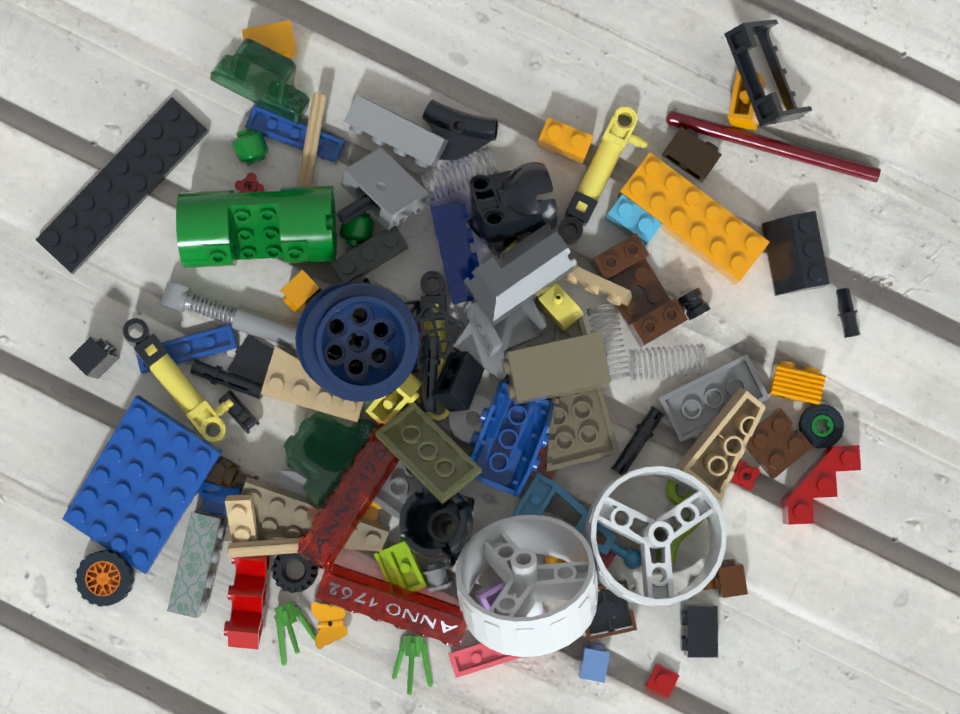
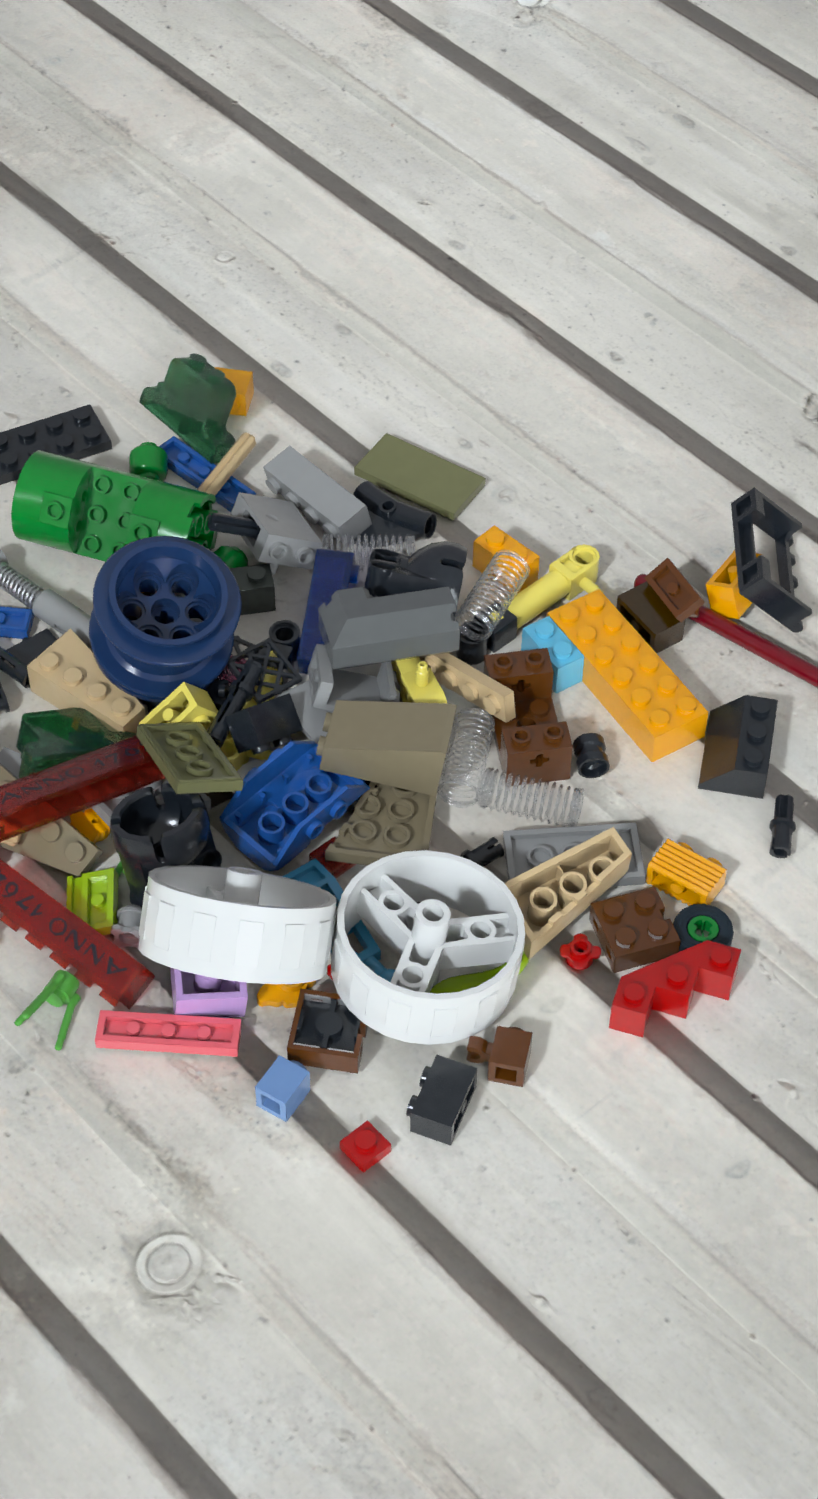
camera: 25 degrees right, 35 degrees down
(462, 71) = (420, 476): none -> olive tile
(574, 163) = (480, 614): none -> clear piece
(708, 136) = (675, 590): none -> reddish brown tile

